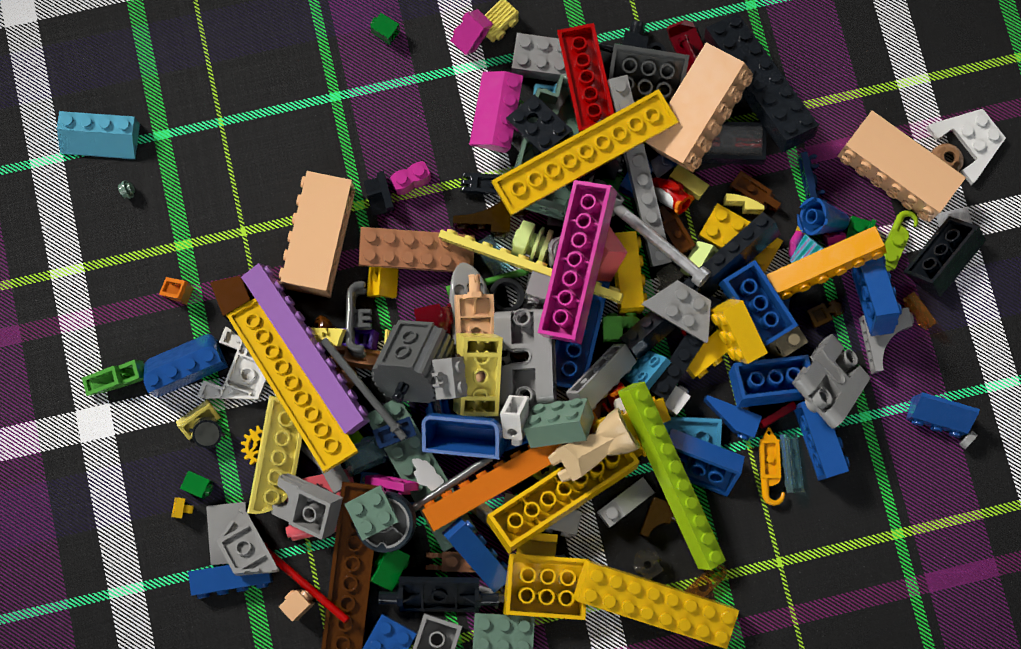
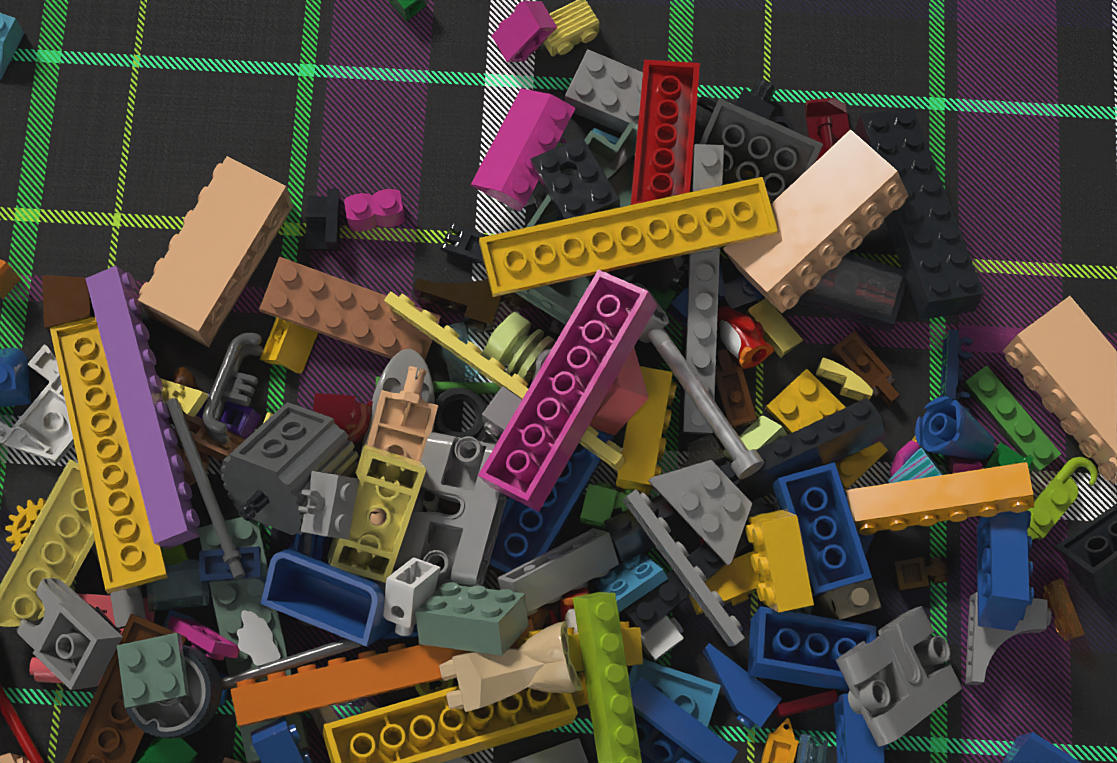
camera: 15 degrees right, 5 degrees down
(686, 357) = (691, 577): none -> light grey plate
(854, 198) = (1011, 418): none -> bright green plate

